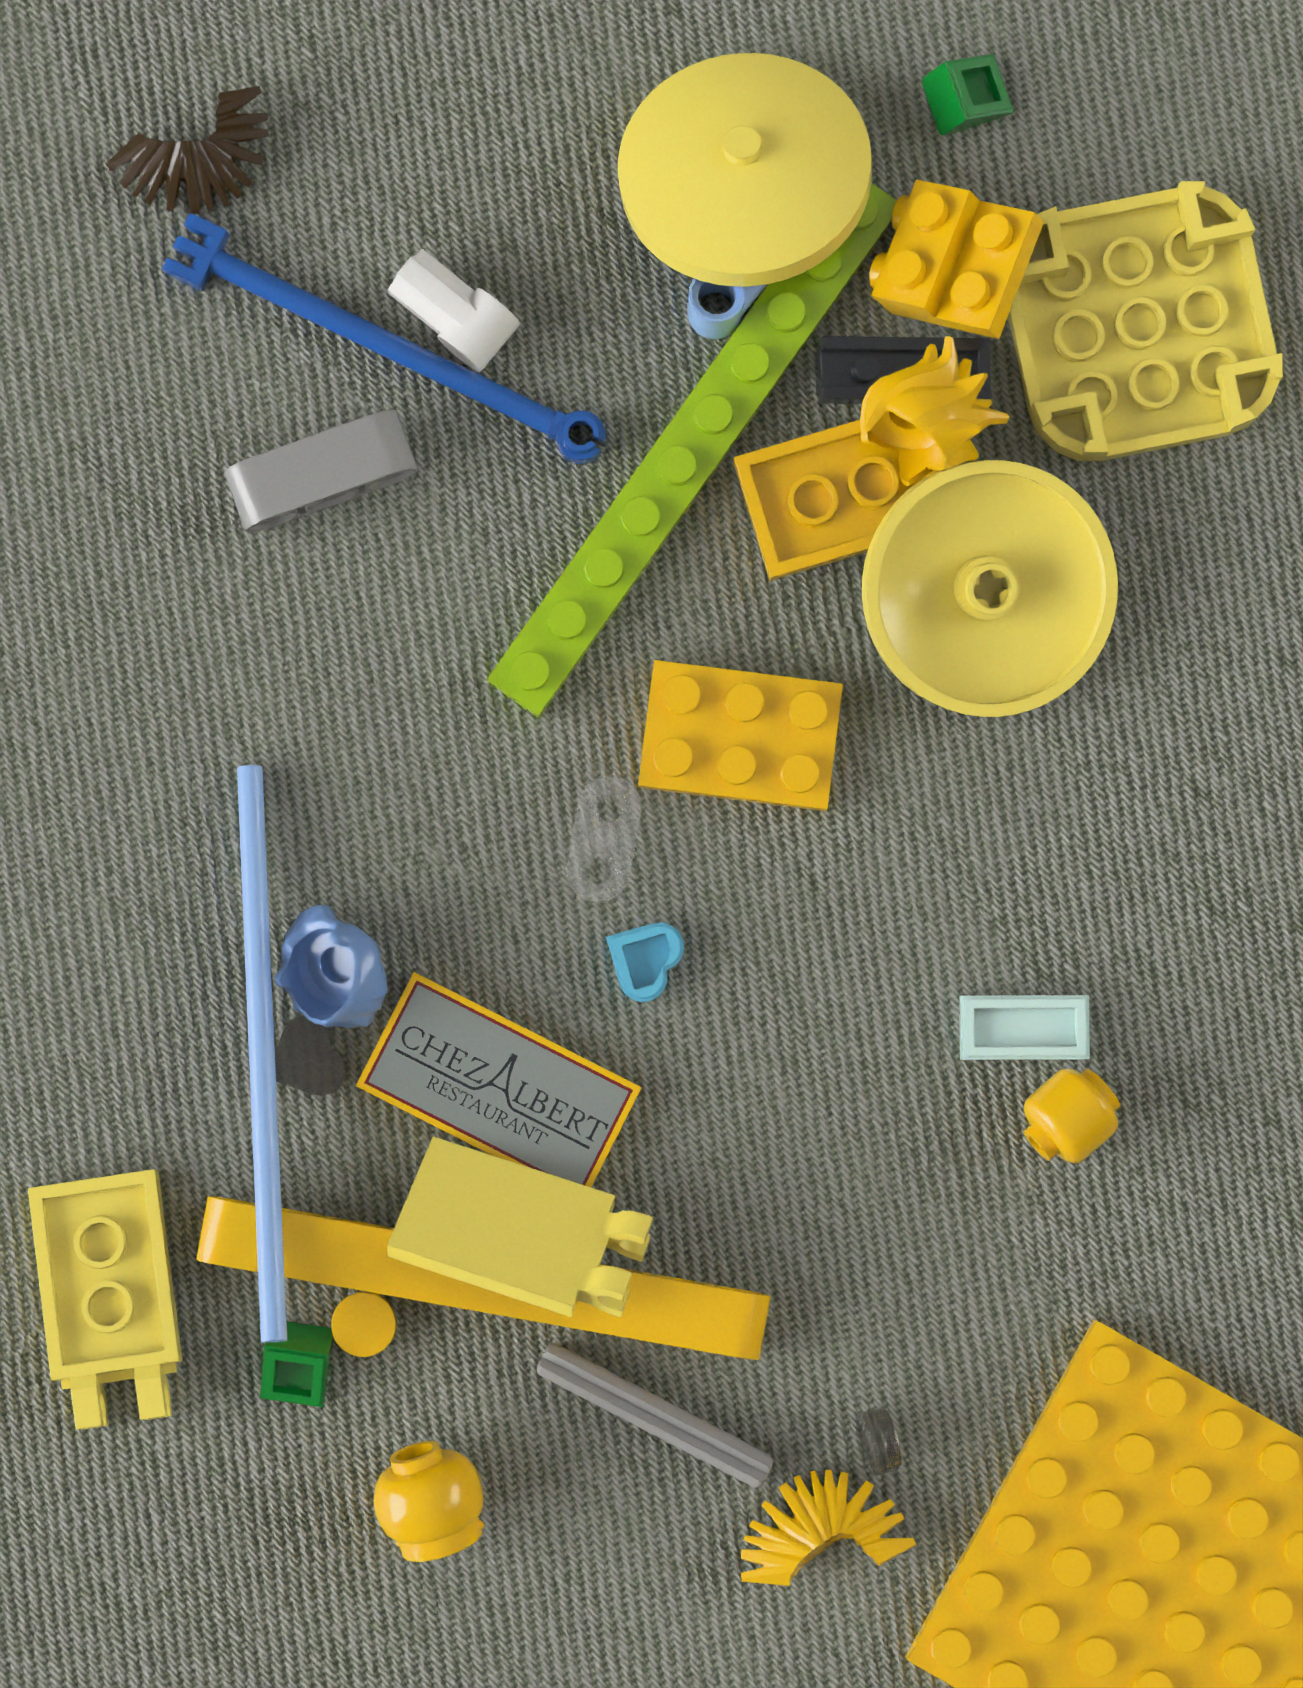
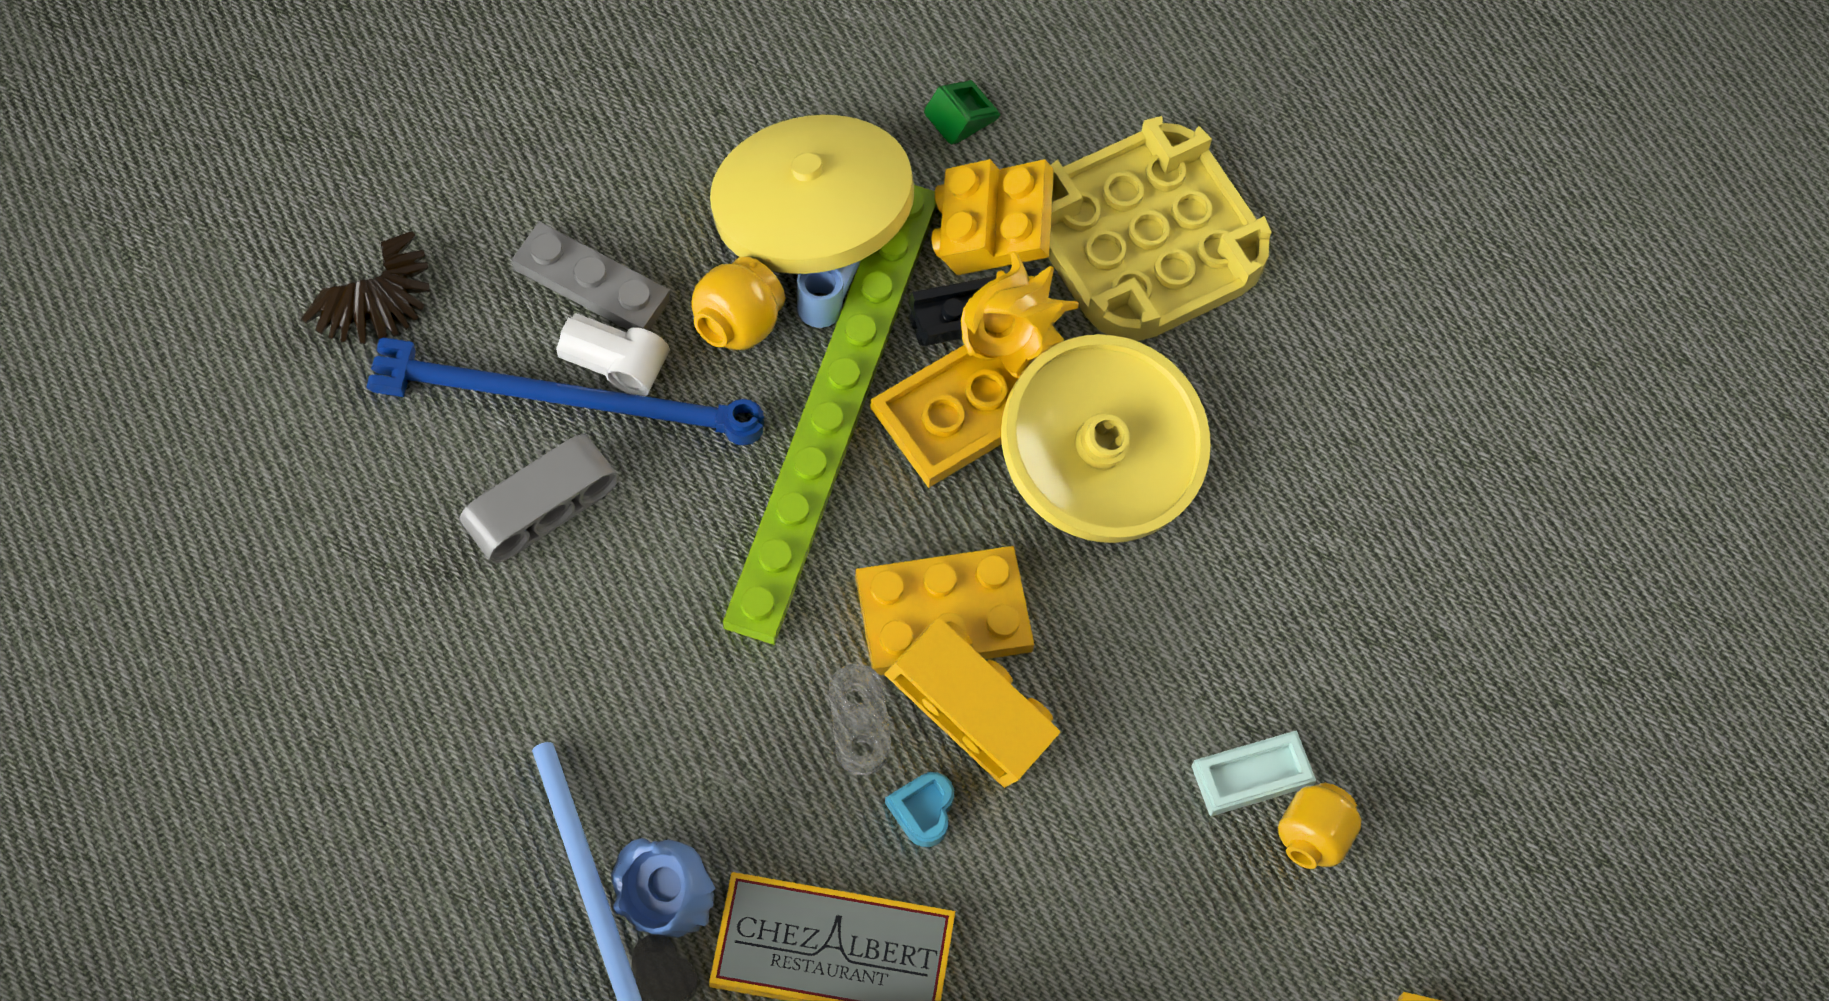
camera: 25 degrees left, 20 degrees down
(455, 201) = (590, 278): none -> light grey plate
(611, 294) = (737, 304): none -> yellow piece
(734, 862) = (973, 701): none -> yellow brick

